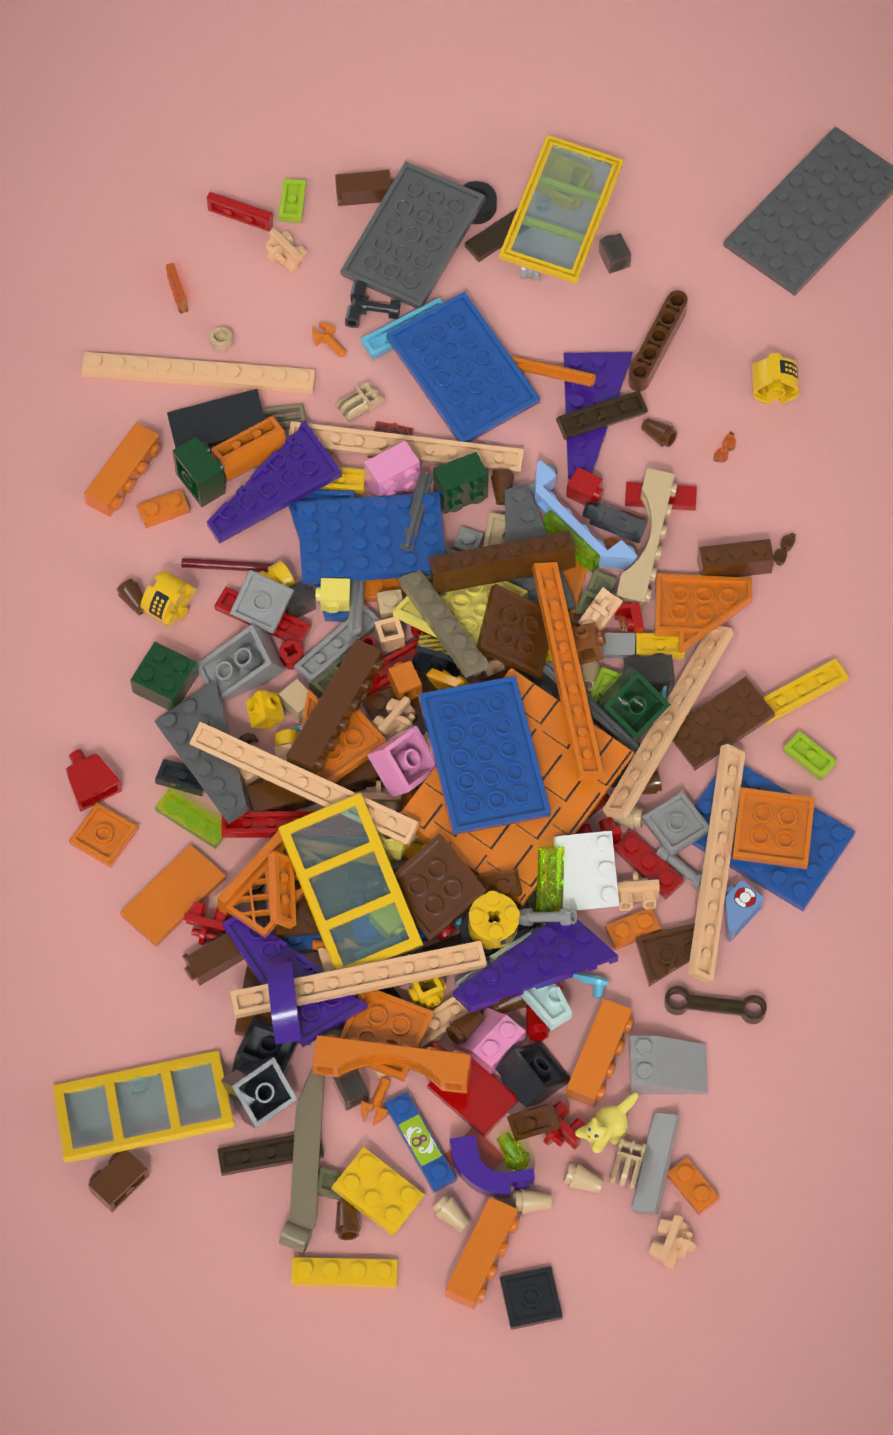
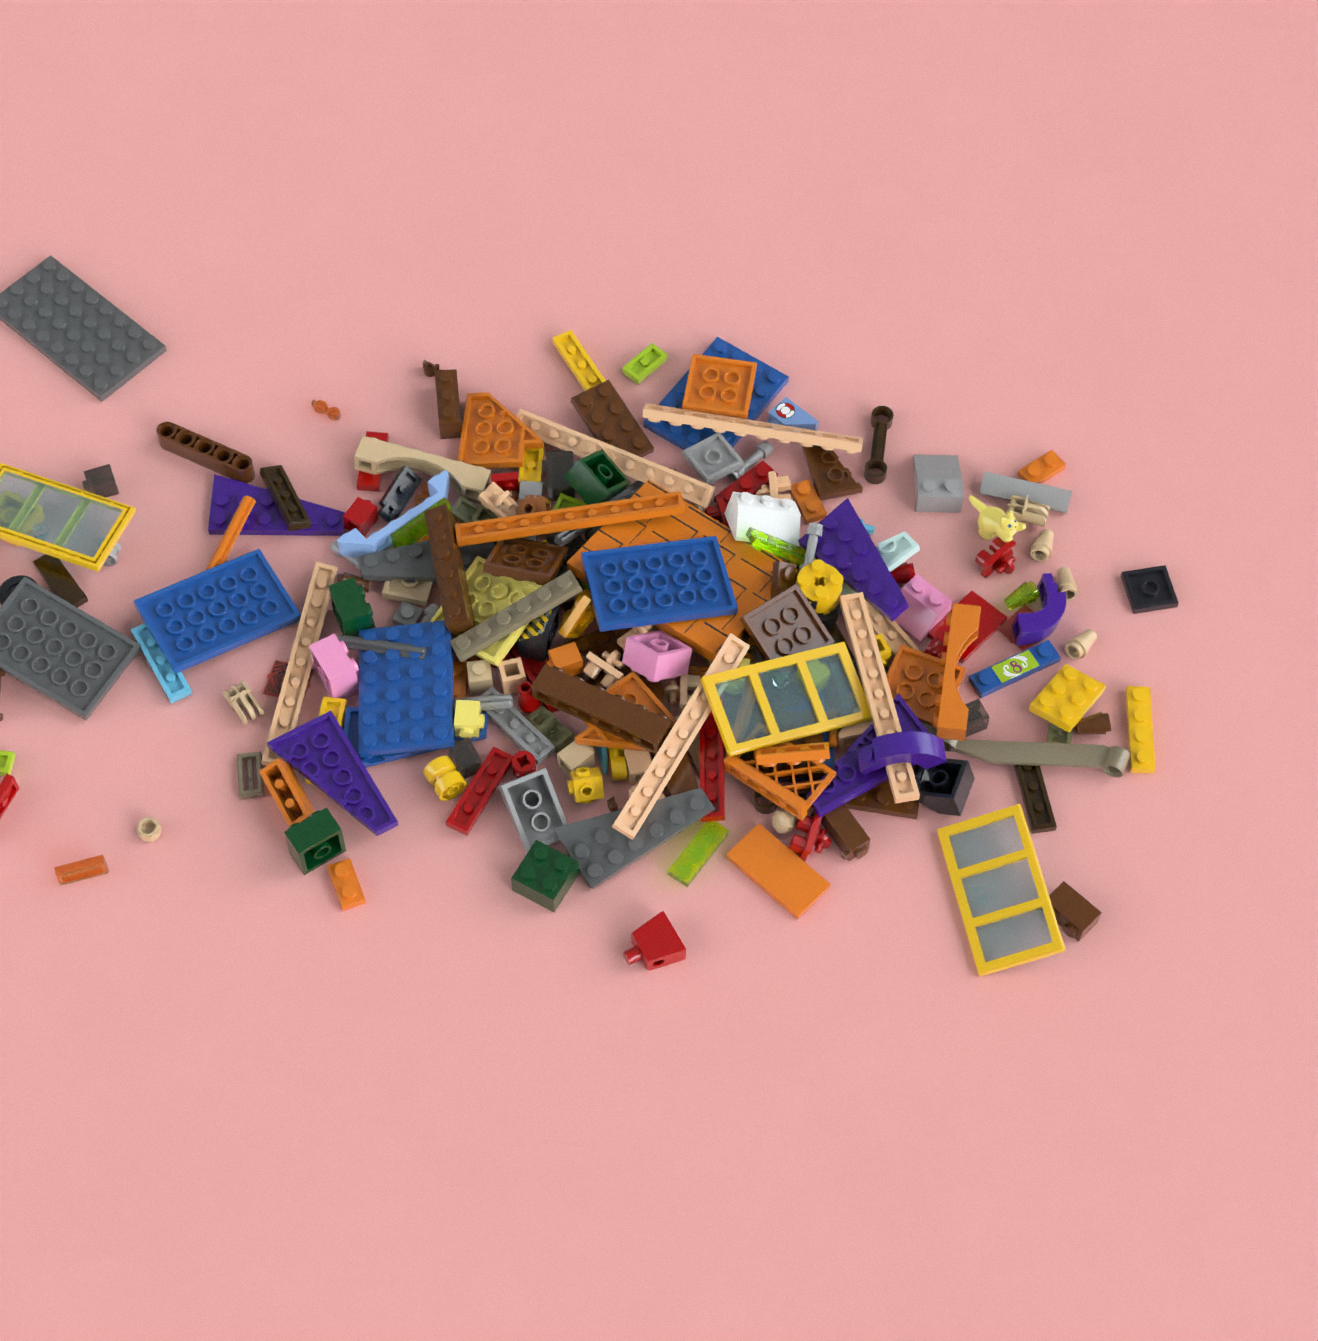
camera: 90 degrees left, 5 degrees down
(103, 834) = (713, 934): orange tile -> none
(123, 469) = (299, 919): orange brick -> none
(131, 594) = (449, 908): reddish brown cone -> none
(167, 598) = (460, 869): yellow brick -> none
(177, 777) = (654, 864): black plate -> none
(198, 372) = (186, 855): light nougat plate -> none
(216, 419) = (251, 832): black tile -> none
(225, 565) = (417, 823): dark red bar -> none
(259, 1091) = (984, 786): black slope -> none
(262, 602) = (472, 781): light grey tile -> none
(282, 250) = (50, 769): light nougat hips -> none
(327, 338) = (160, 733): orange bar -> none
(361, 305) = (128, 698): black bar -> none
(376, 1103) = (989, 699): orange bar -> none
(464, 1026) = (913, 626): reddish brown cone -> none
(482, 1252) = (1116, 620): orange brick -> none
(532, 1073) = (953, 575): black slope -> none
(533, 1122) = (999, 573): reddish brown plate -> none
(599, 1053) = (928, 527): orange brick -> none
(659, 432) = (305, 457): reddish brown cone -> none
(676, 1243) = (1096, 479): light nougat hips -> none
(775, 379) = (265, 359): yellow brick -> none

